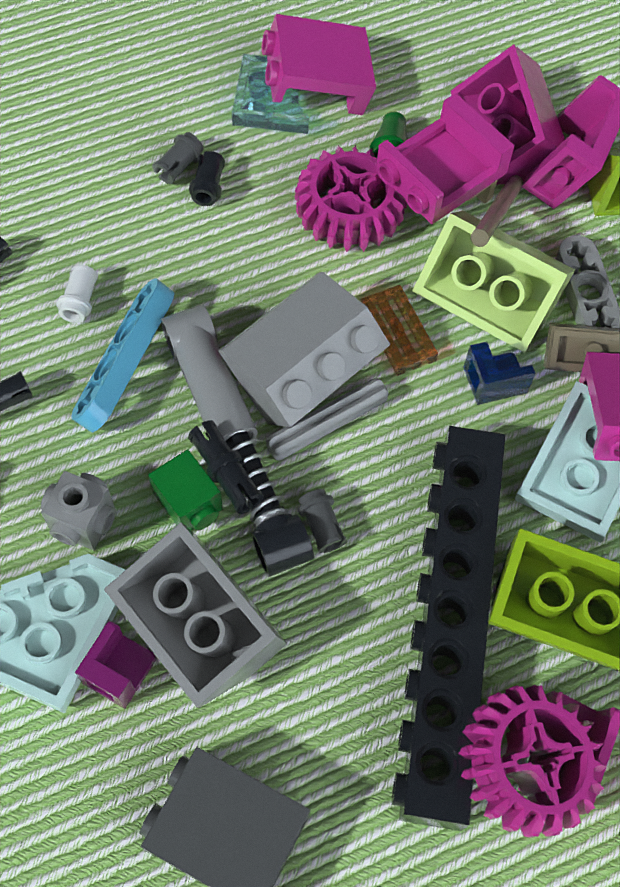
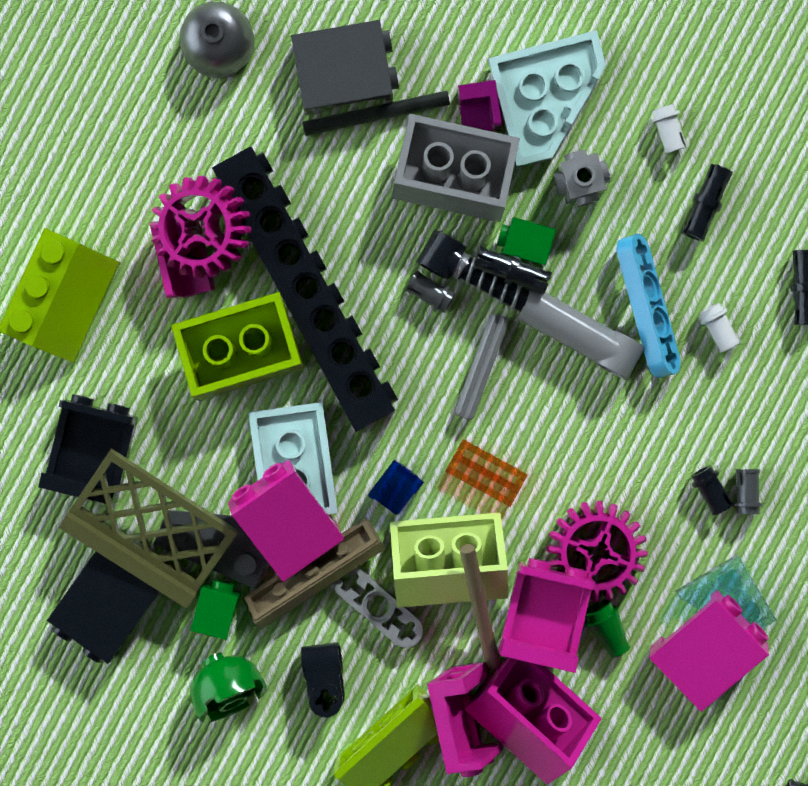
camera: 145 degrees right, 25 degrees up
(231, 753) = (376, 113): none -> pearl dark grey bar
(304, 350) = (529, 393): light grey slope -> none

